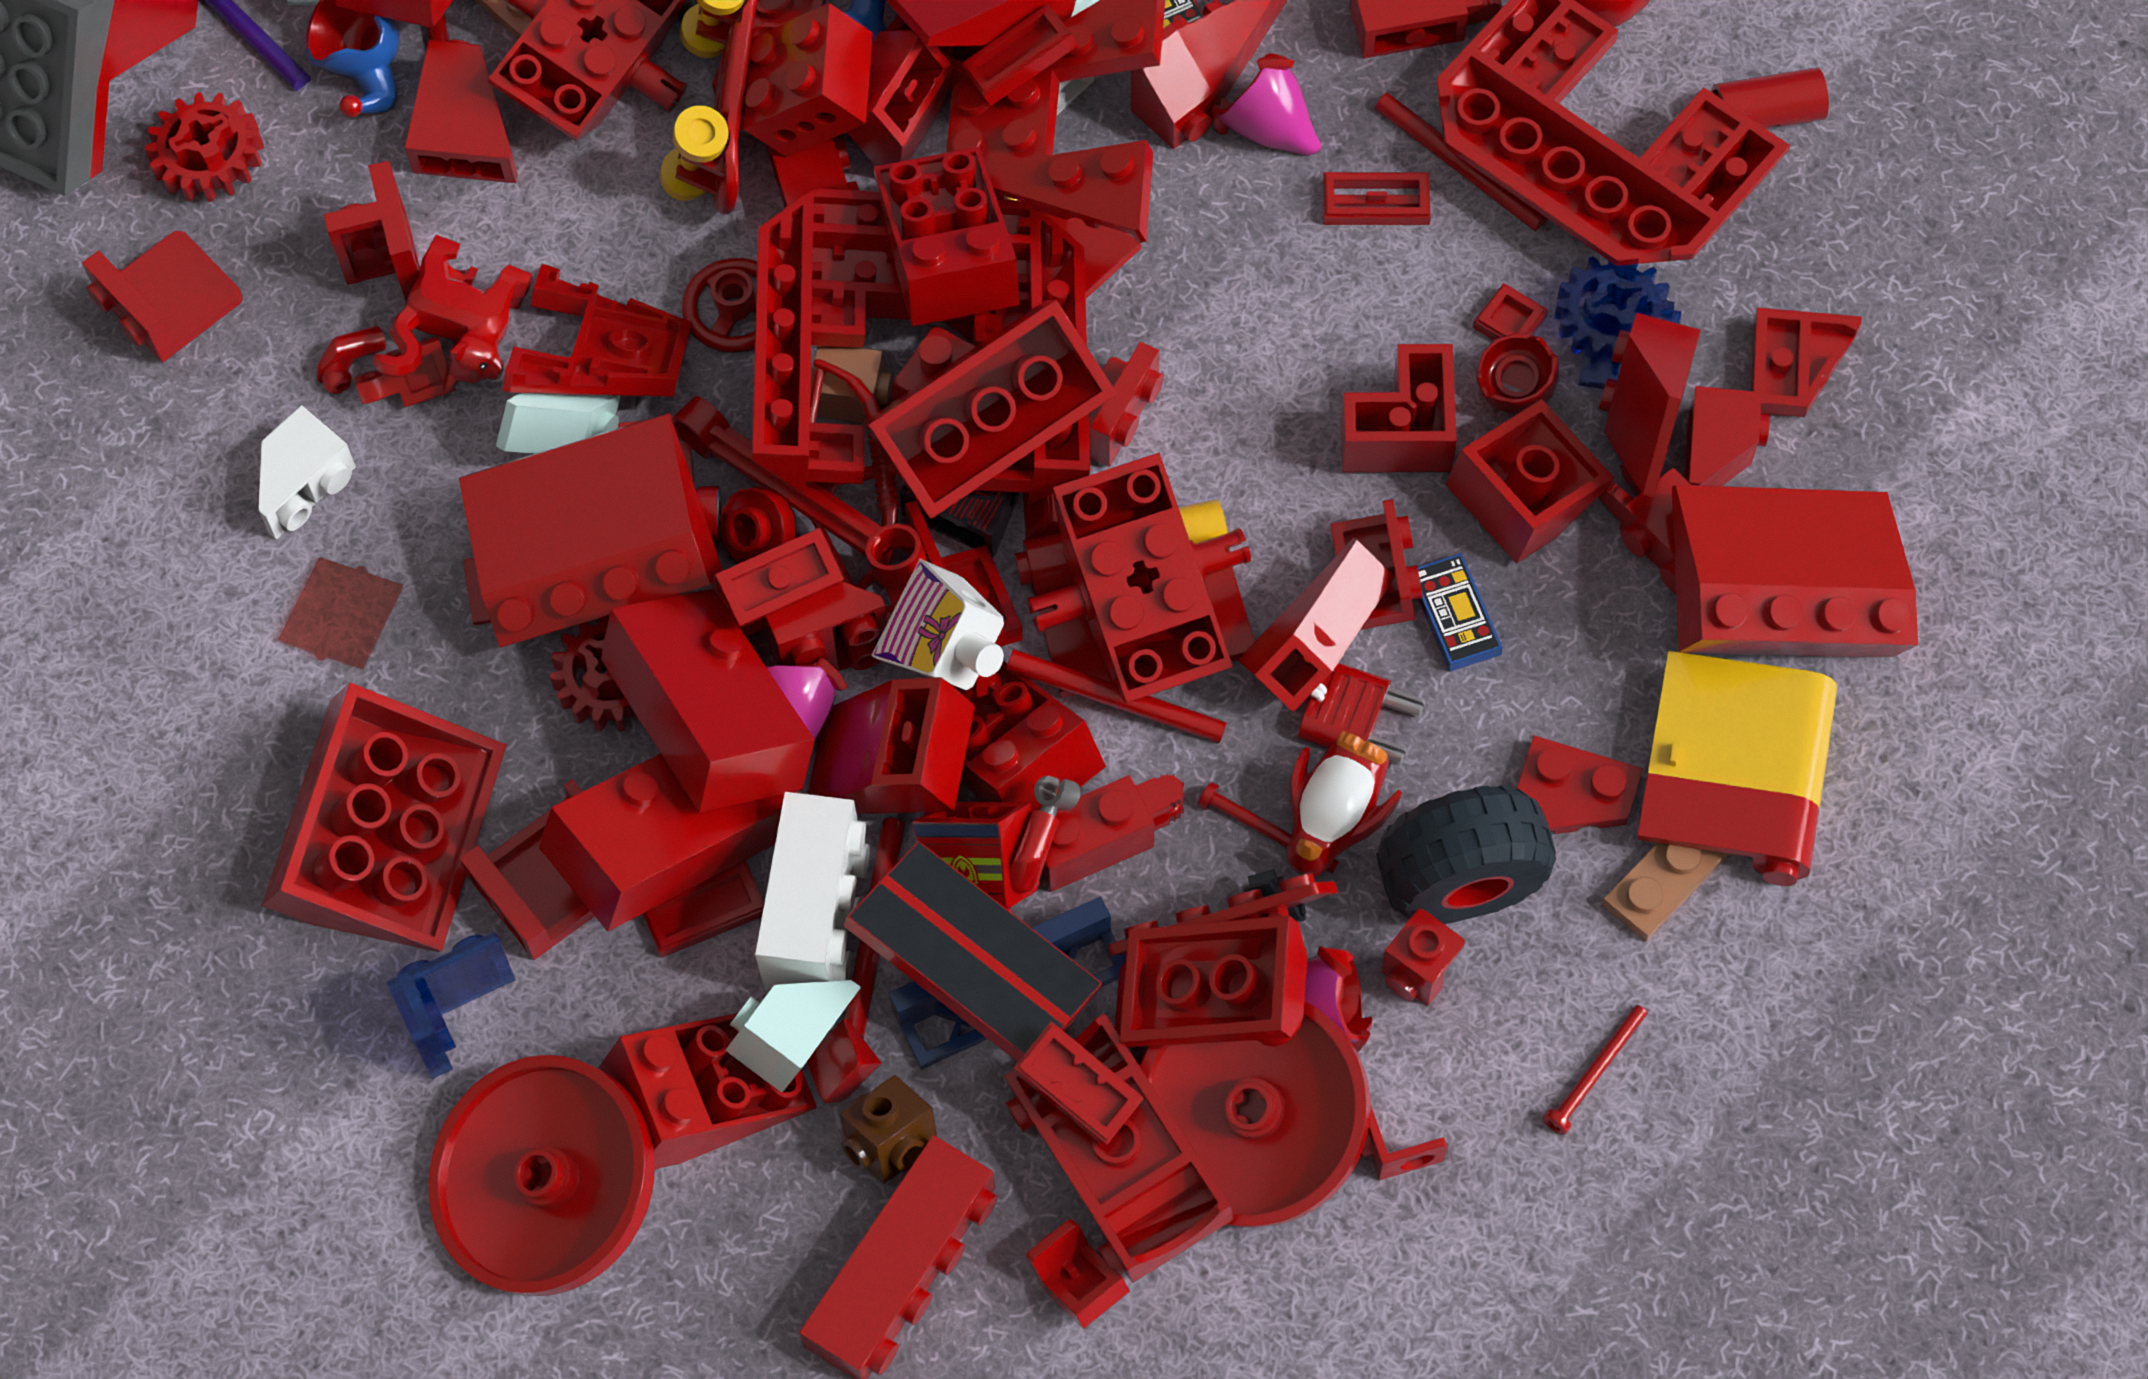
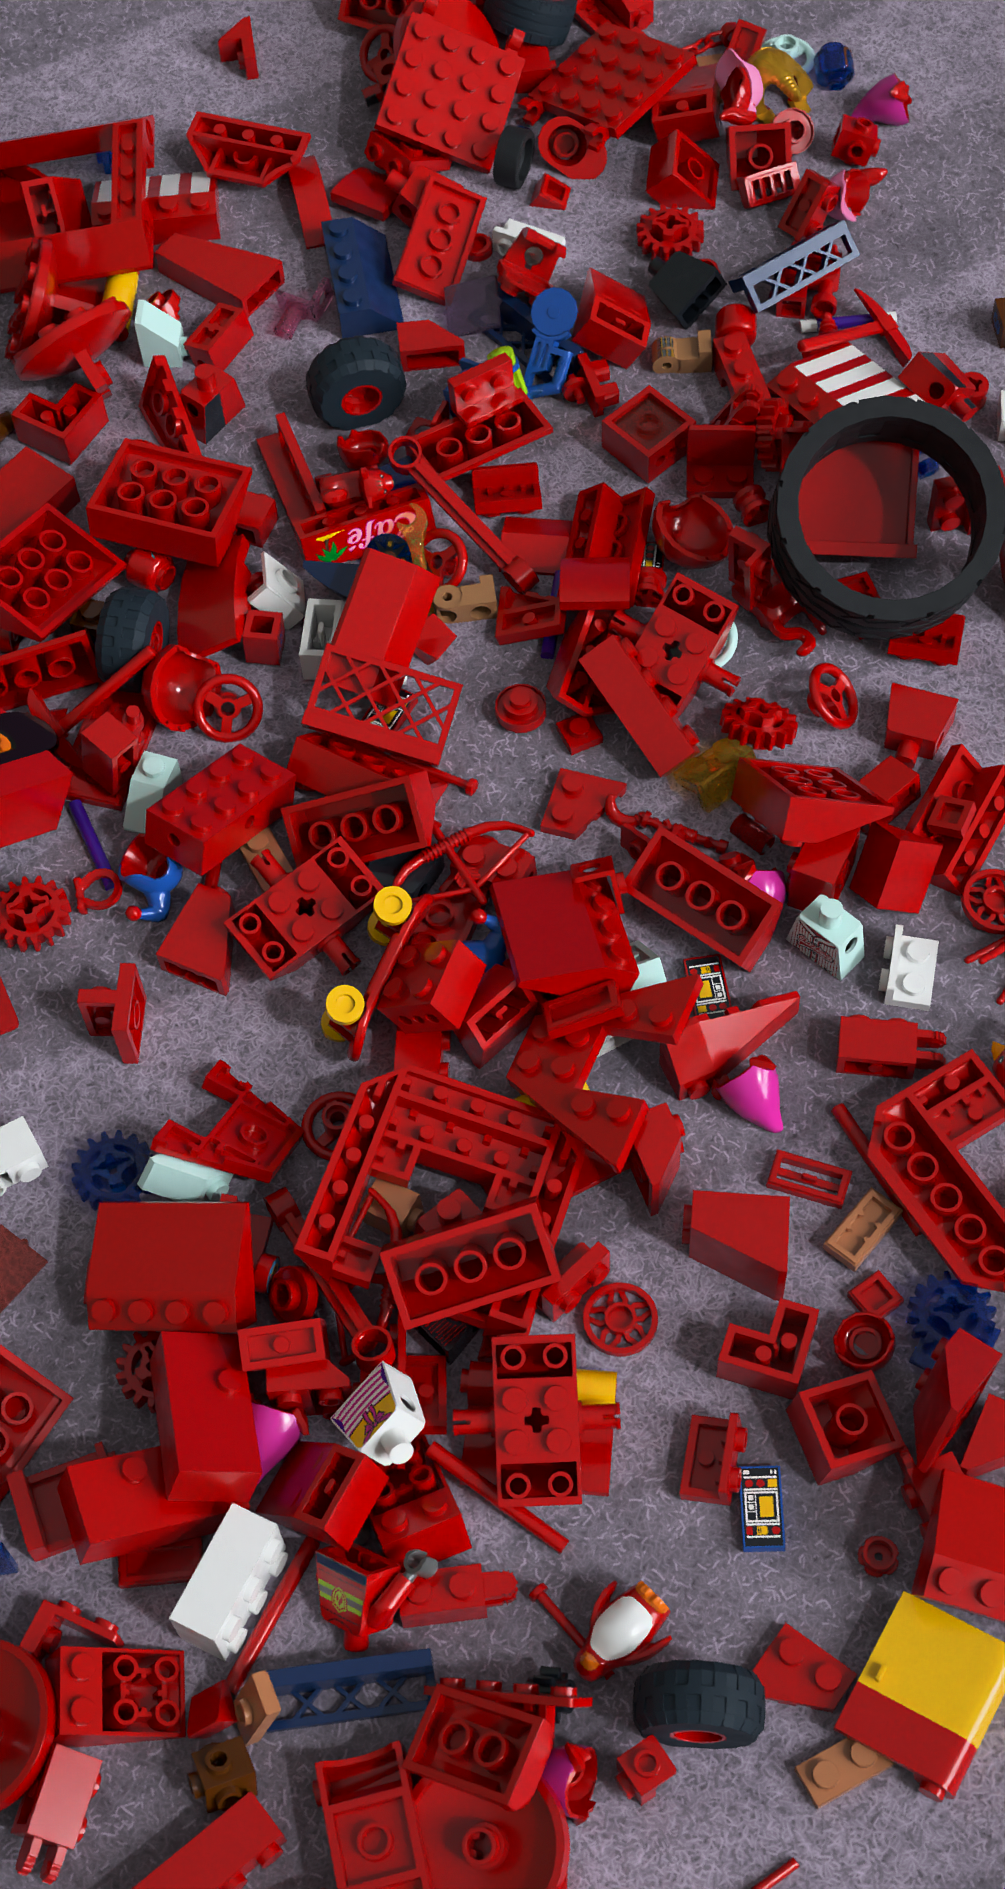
camera: 20 degrees right, 5 degrees down
(261, 90) = (82, 884): none -> red piece
(341, 353) = (68, 1083): red arm -> none
(415, 387) = (106, 1112): red plate -> none
(445, 421) = (96, 1165): none -> clear blue gear
(452, 308) = (145, 1075): red animal -> none
(587, 1040) = (44, 1632): none -> red bracket
(685, 1240) = (55, 1810): none -> hinge
(787, 1027) = (180, 1674): light aqua slope -> none
(903, 1032) = (256, 1707): none -> nougat plate
(947, 236) = (486, 1126): red slope -> none
(971, 952) = (322, 1666): black tile -> none
(1077, 1084) = (358, 1791): red plate -> none
(1176, 218) = (657, 1155): none -> red slope
(1196, 437) = (620, 1319): none -> red wheel
(1318, 626) = (652, 1493): red slope -> none
(1320, 288) = (740, 1237): none -> red slope
(1352, 703) = (659, 1557): red piece -> none
(1466, 239) = (862, 1229): none -> nougat plate
(1621, 610) = (879, 1545): none -> red plate

